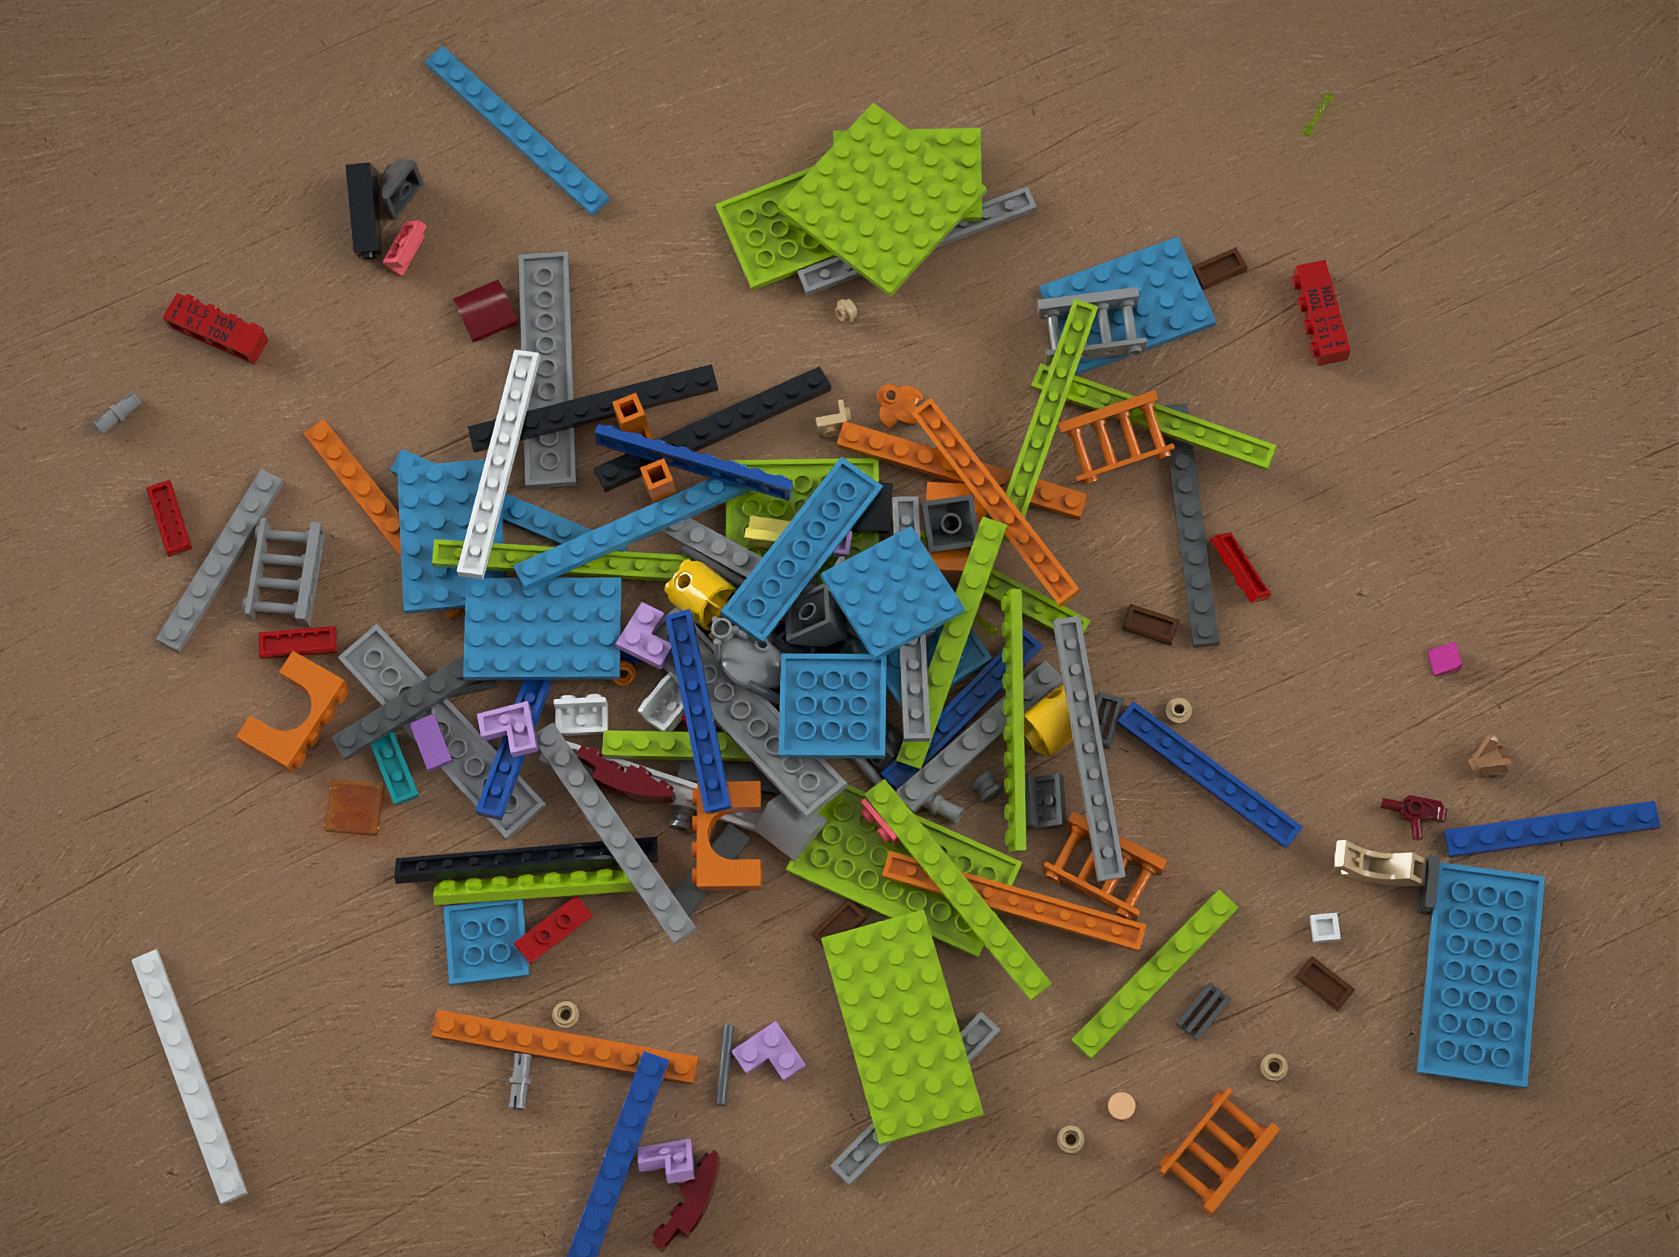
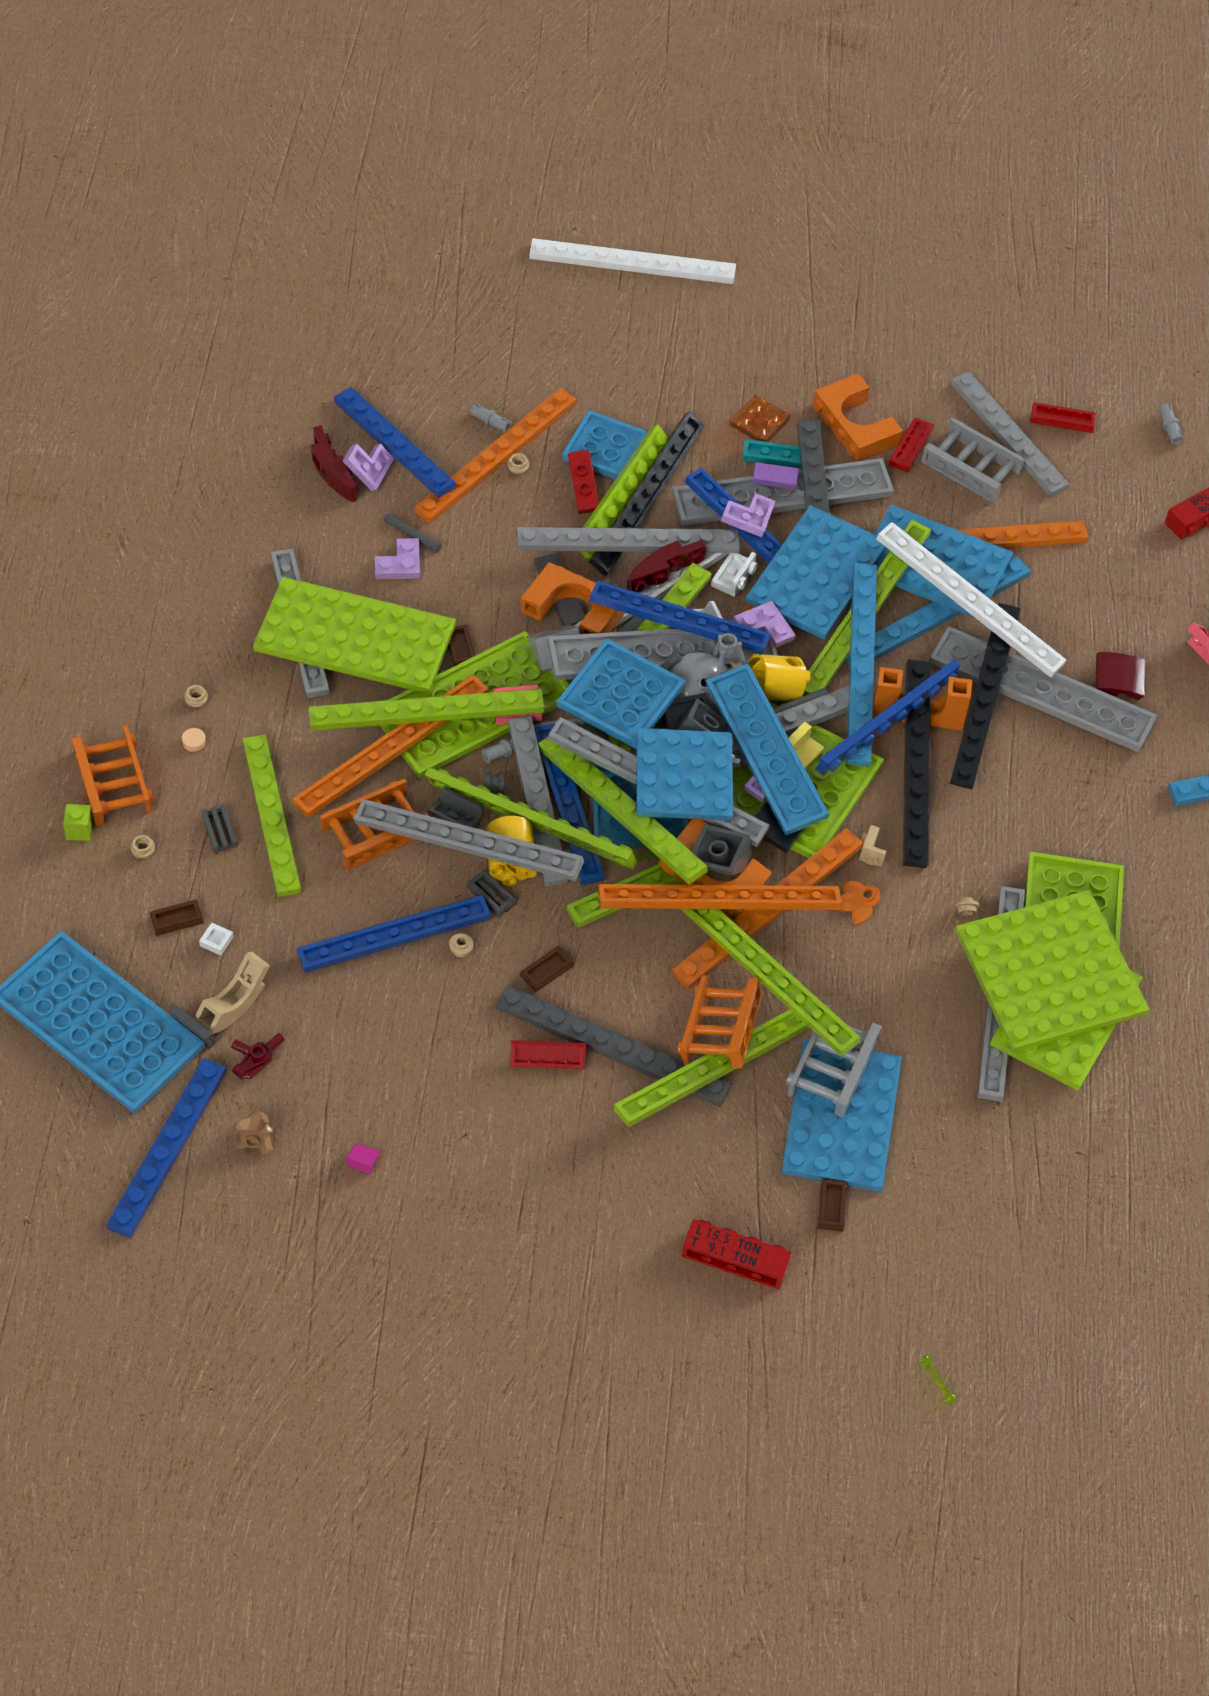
camera: 110 degrees right, 15 degrees down
(1294, 1142) = (78, 822): none -> lime brick

